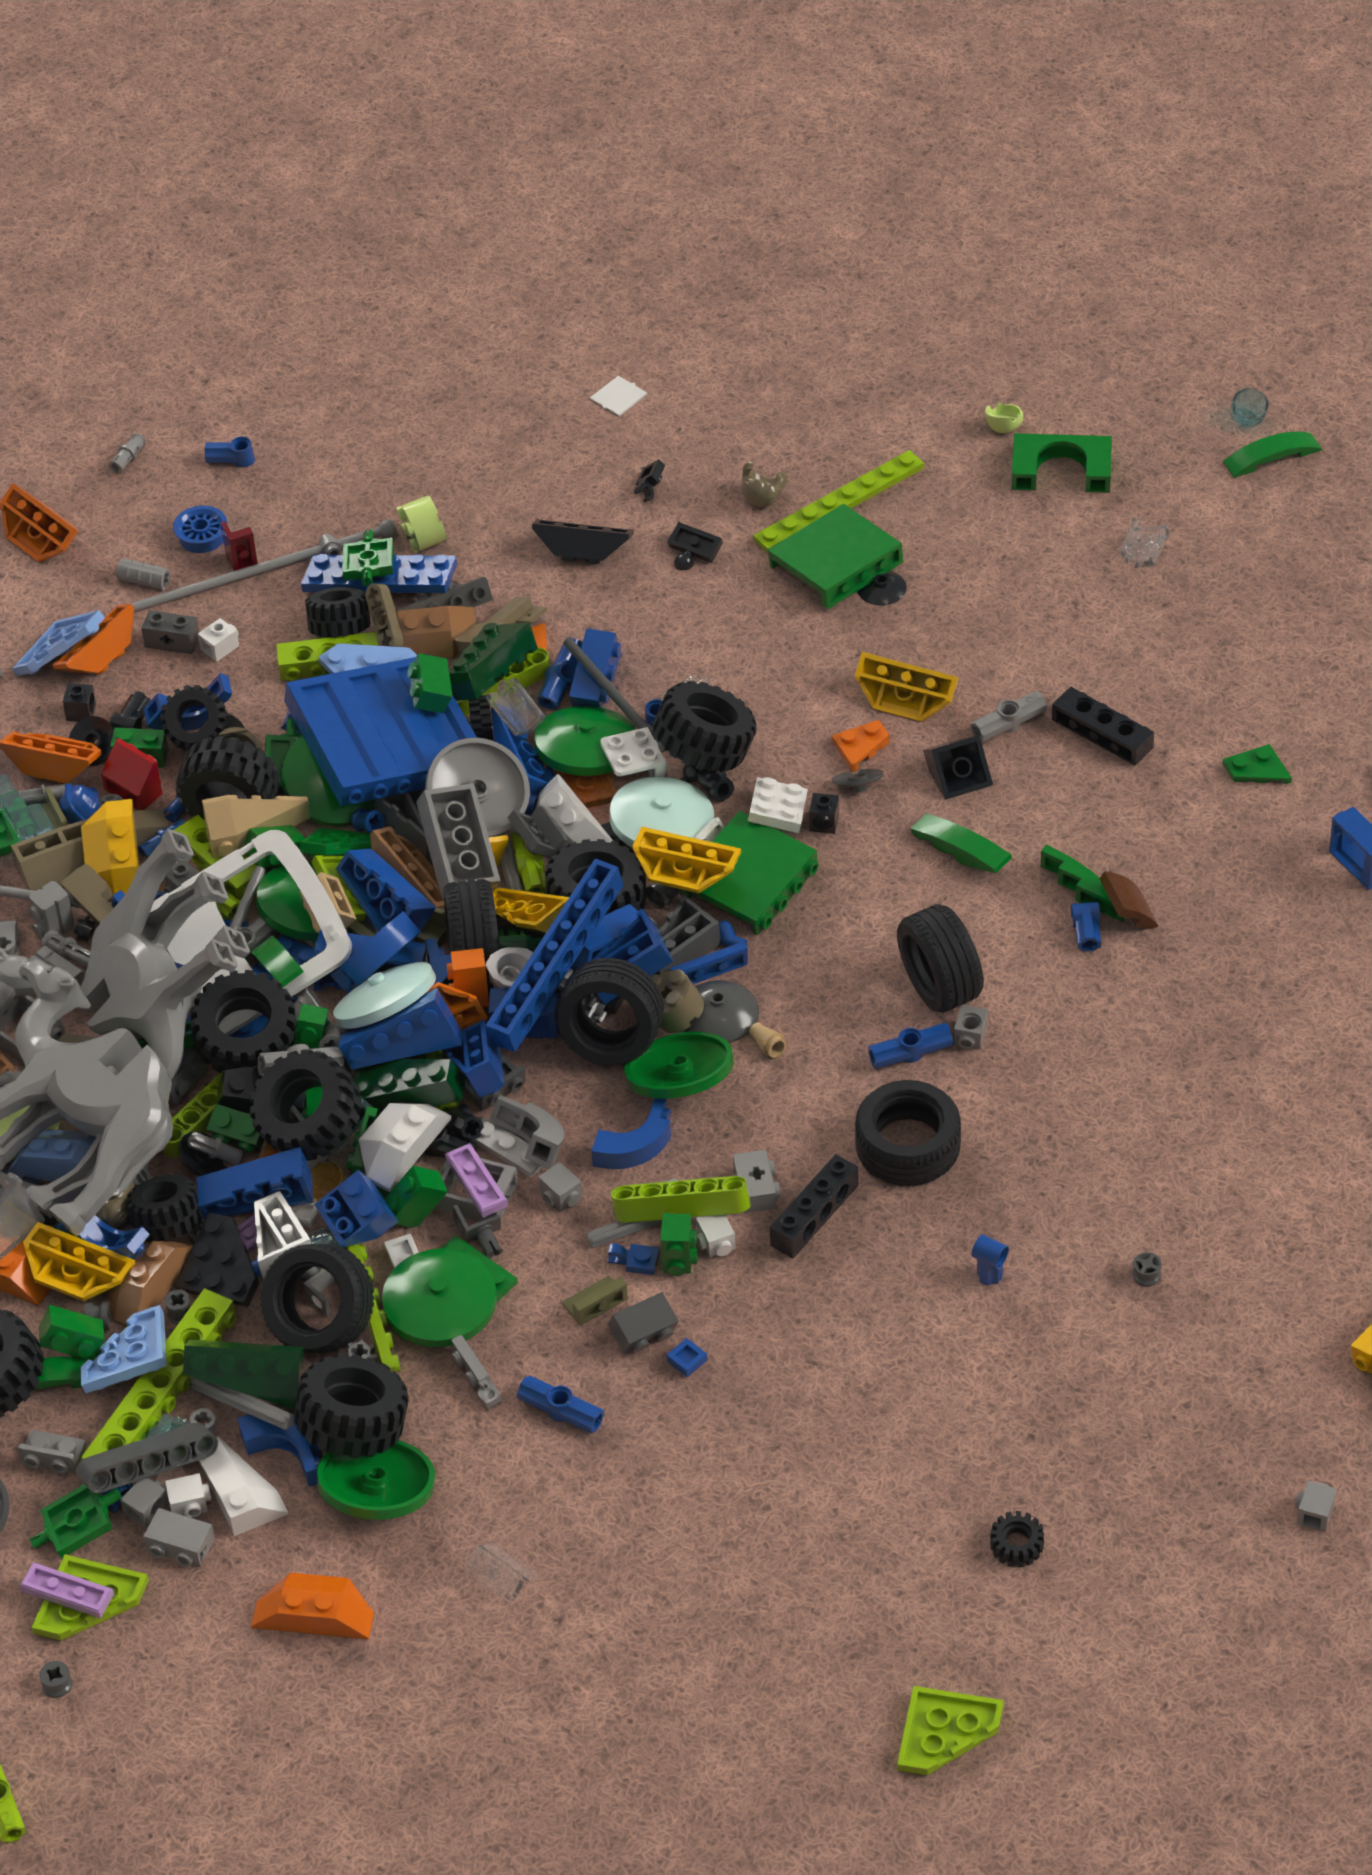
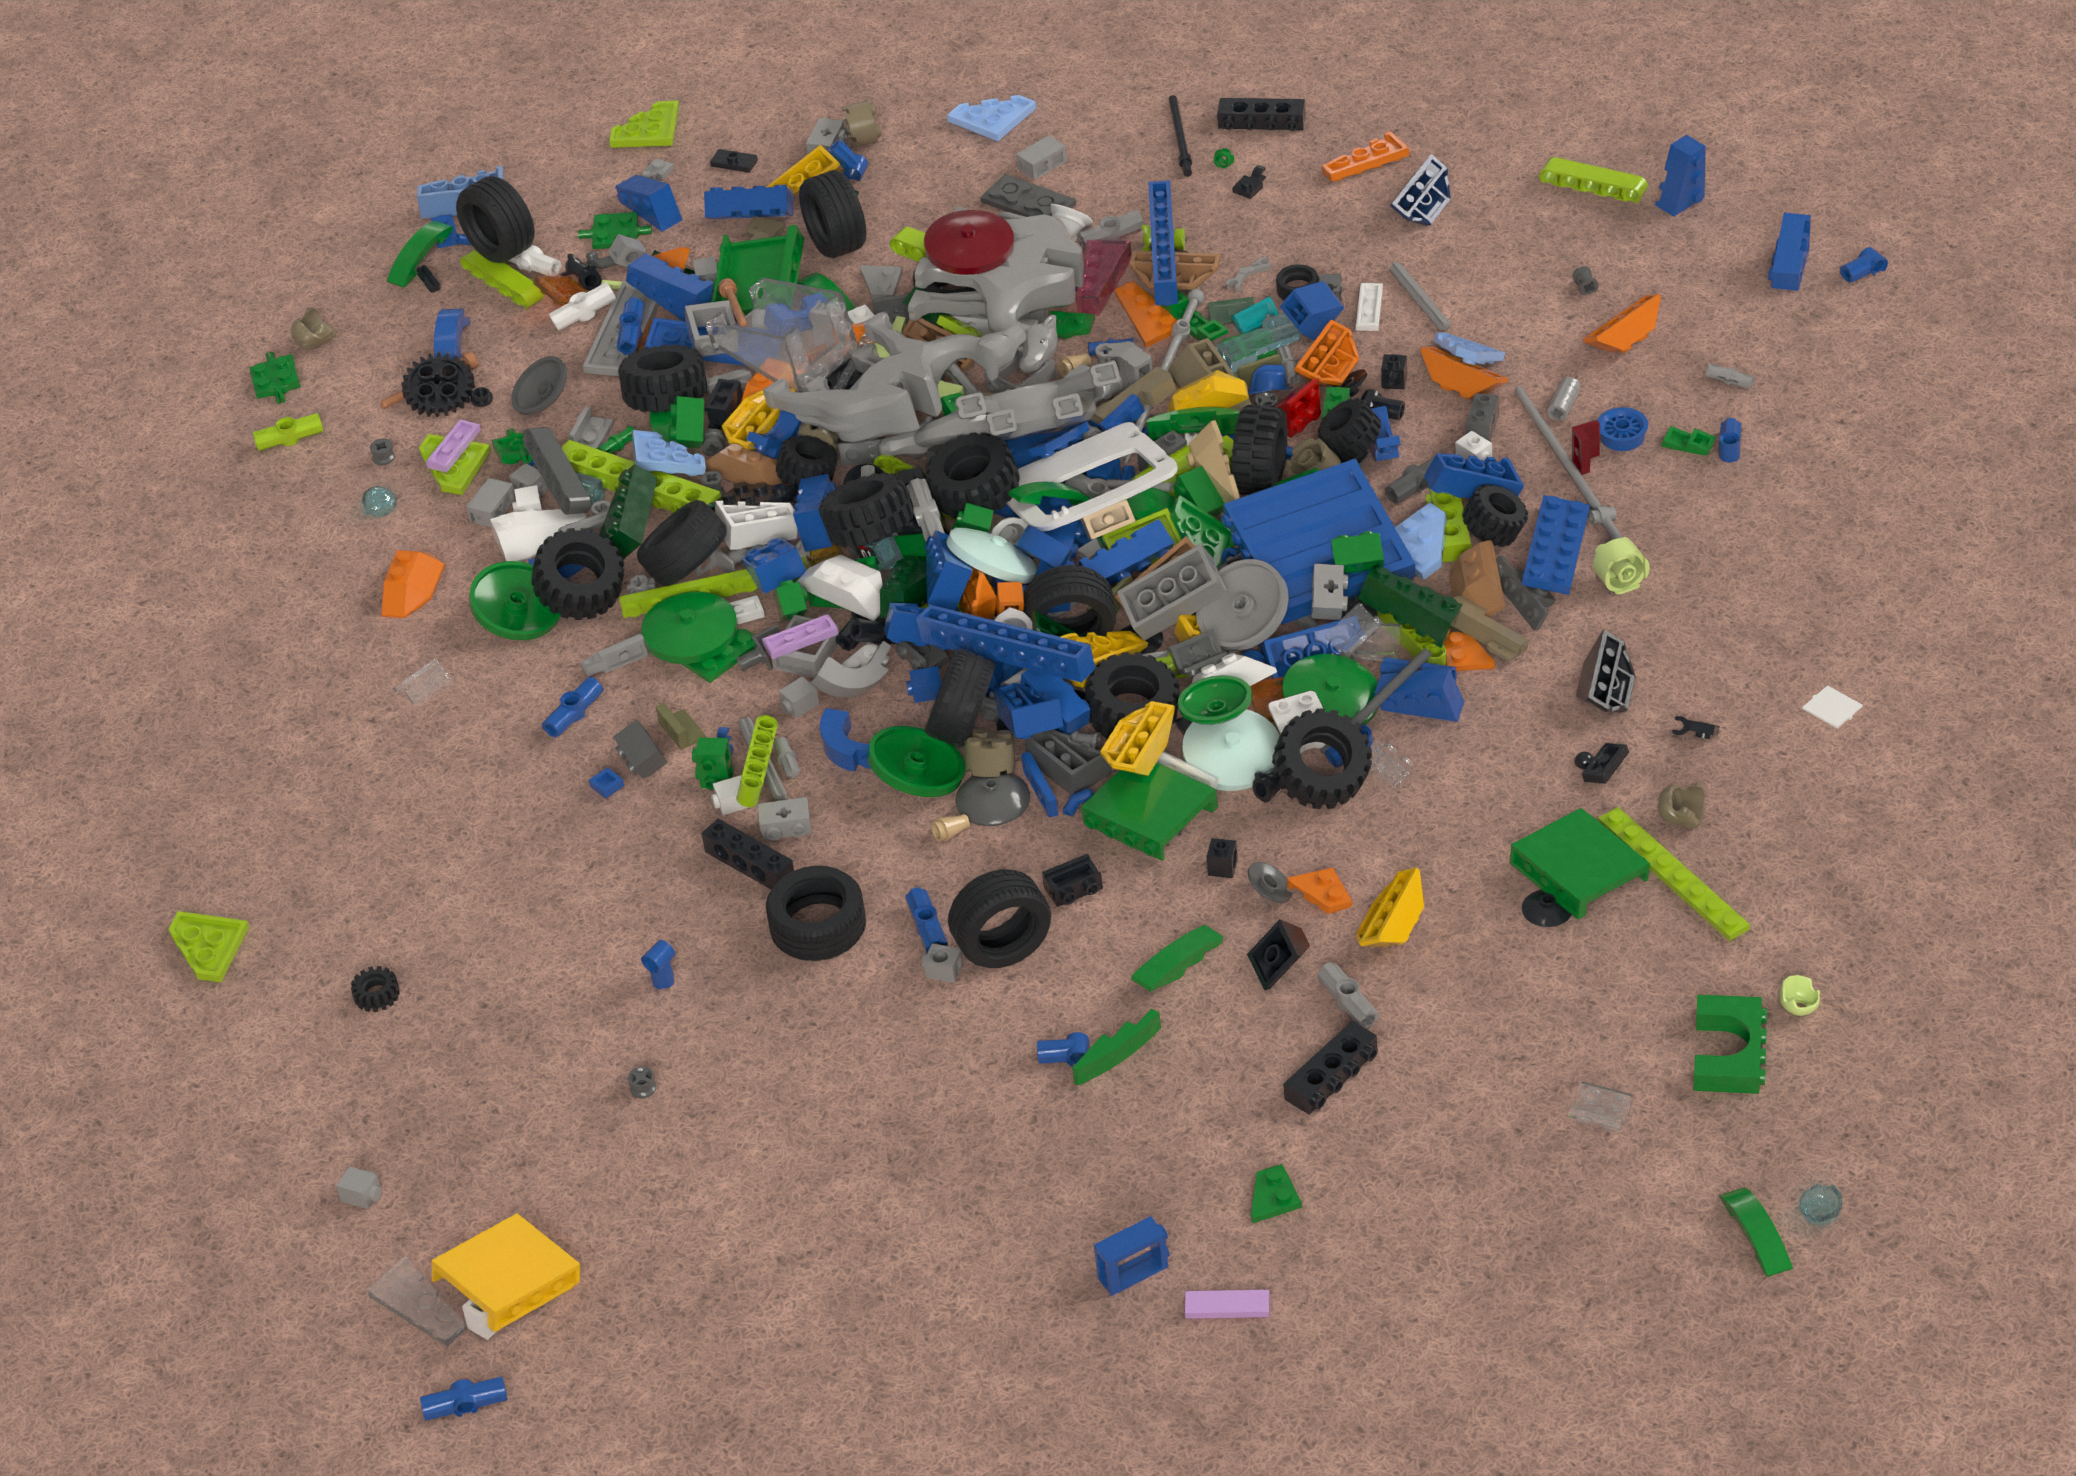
camera: 95 degrees right, 5 degrees down
(31, 1301) = (723, 402): none -> black hinge
(76, 1419) = (618, 441): none -> green pin
(151, 833) = (1192, 420): none -> green slope
(153, 1672) = (378, 501): none -> clear light blue hair
(223, 483) = (1695, 443): none -> green slope
(254, 683) = (1410, 482): none -> dark grey piece
(283, 621) = (1463, 476): none -> blue wedge
(368, 558) = (1558, 524): green plate -> none
(378, 602) = (1480, 535): dark tan beam -> none
(475, 713) = (1326, 579): none -> light grey brick
(547, 1074) = (924, 684): none -> blue brick
(621, 793) = (1215, 700): none -> green dish
(777, 804) = (1229, 819): white plate -> none
(852, 931) = (1072, 880): none -> black hinge
(1128, 900) = (1083, 1076): reddish brown slope -> none

